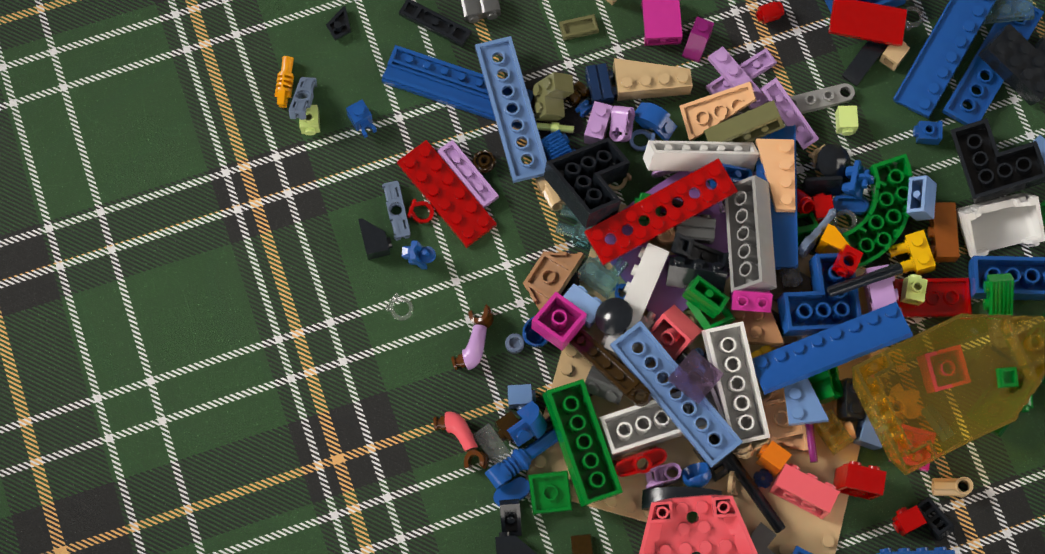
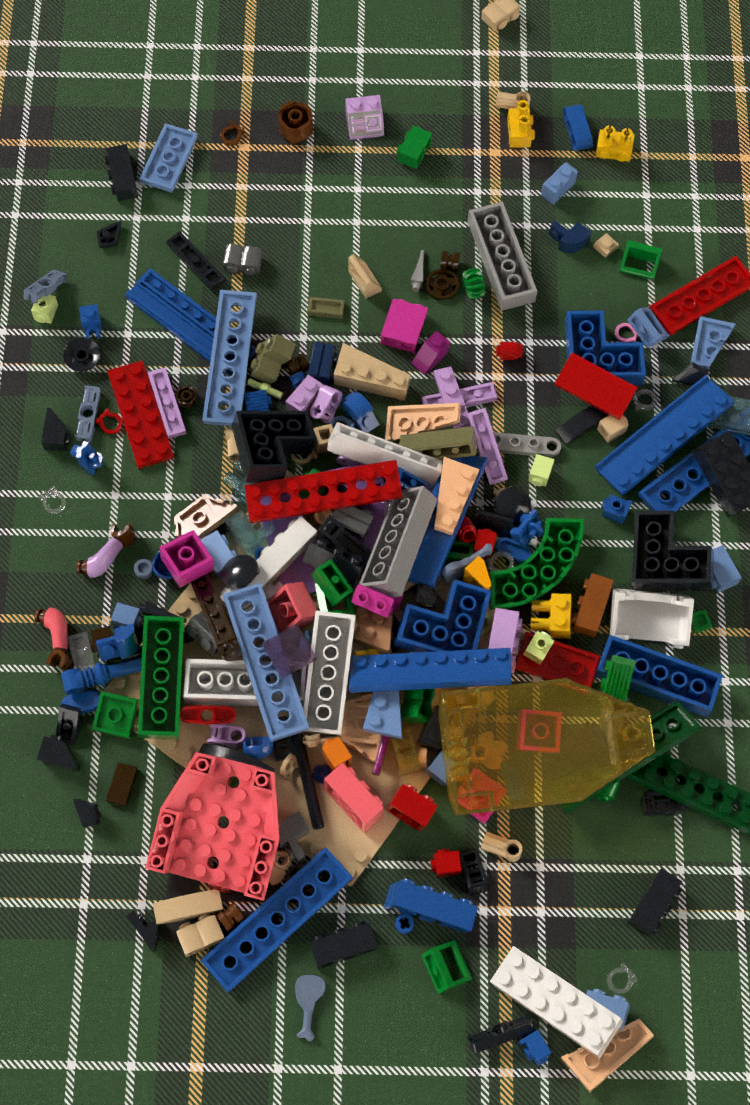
camera: 20 degrees right, 5 degrees down
(284, 82) = (38, 267): light orange hinge -> none
(362, 146) = (78, 348): none -> black dish
(542, 381) = (153, 610): none -> black piece
(635, 156) = (322, 437): none -> tan brick
(851, 255) = (483, 588): red brick -> none
(864, 279) = (489, 617): black axle -> none
(921, 198) = (580, 564): medium blue brick -> none
(1007, 377) = (593, 758): green tile -> none

